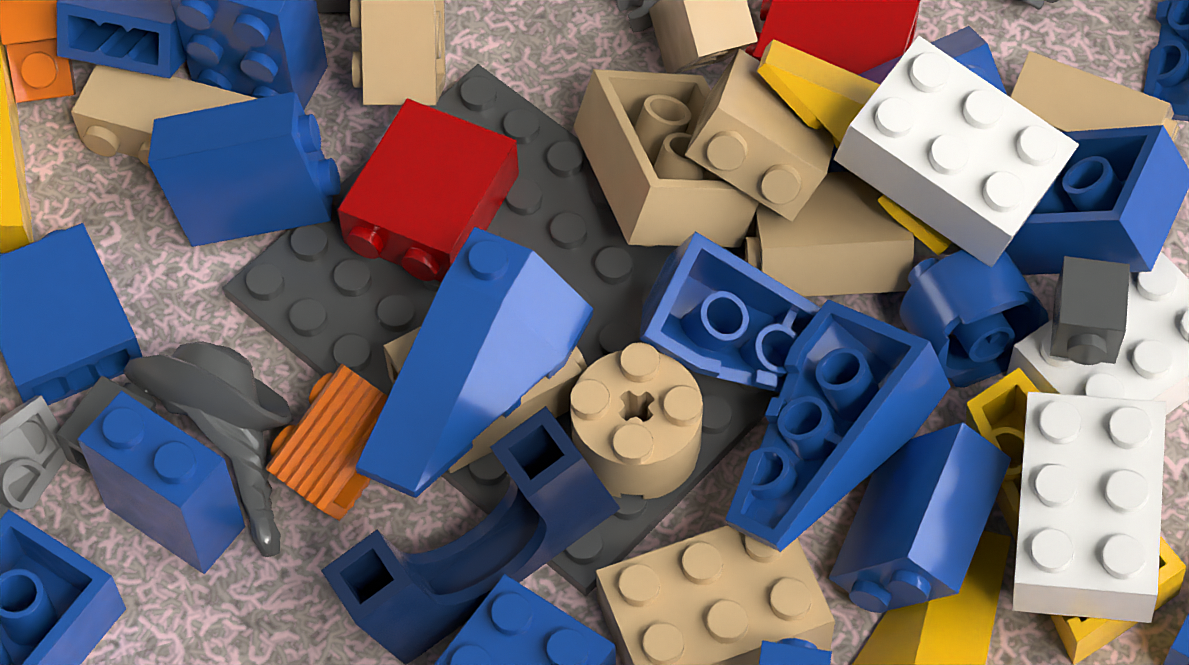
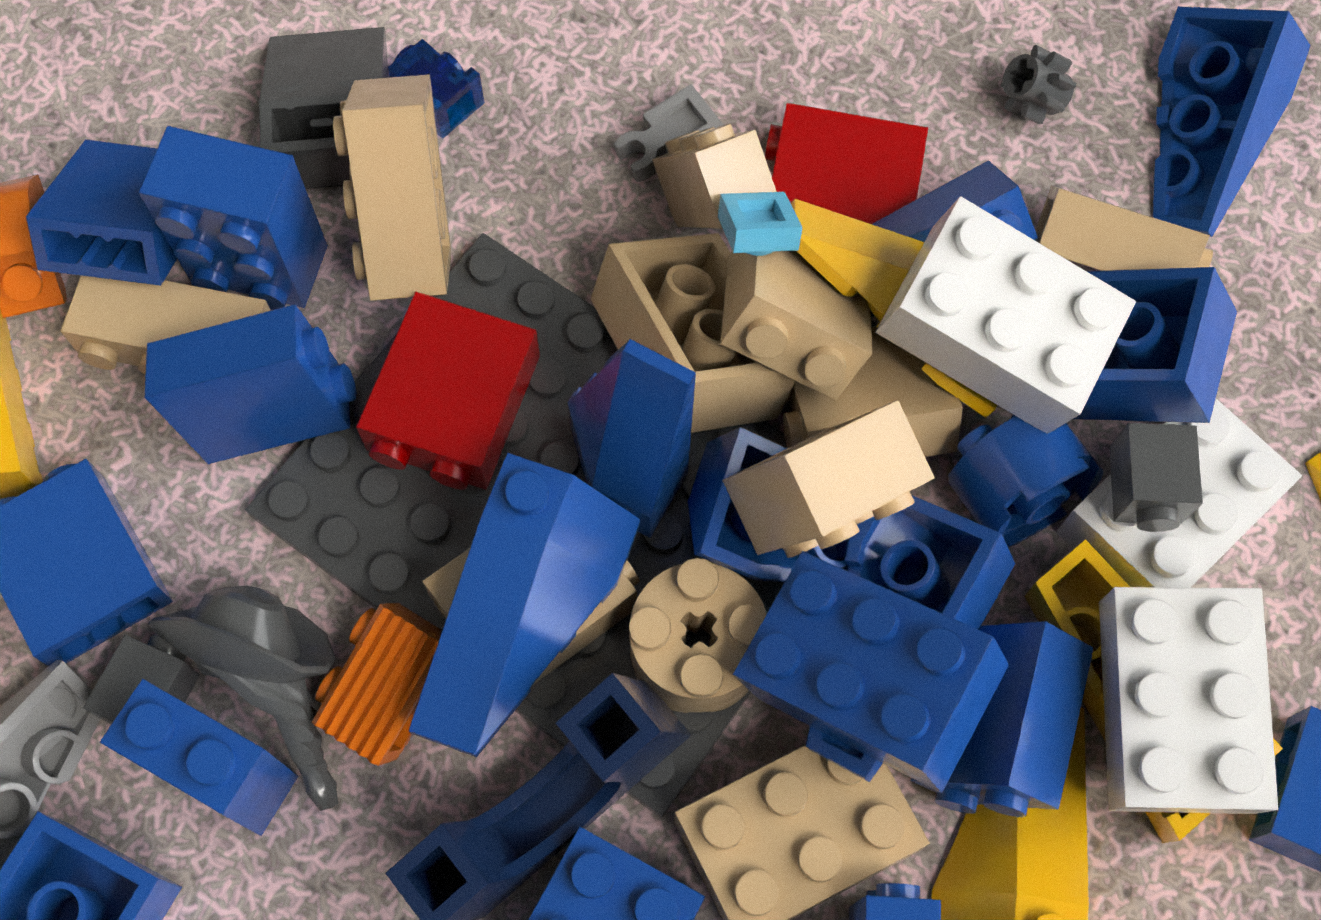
camera: 10 degrees left, 10 degrees up
(598, 224) = (635, 430): none -> blue wedge
(732, 51) = (759, 222): none -> medium azure plate
(769, 276) = (830, 483): none -> brick
(791, 444) = (873, 669): none -> blue brick

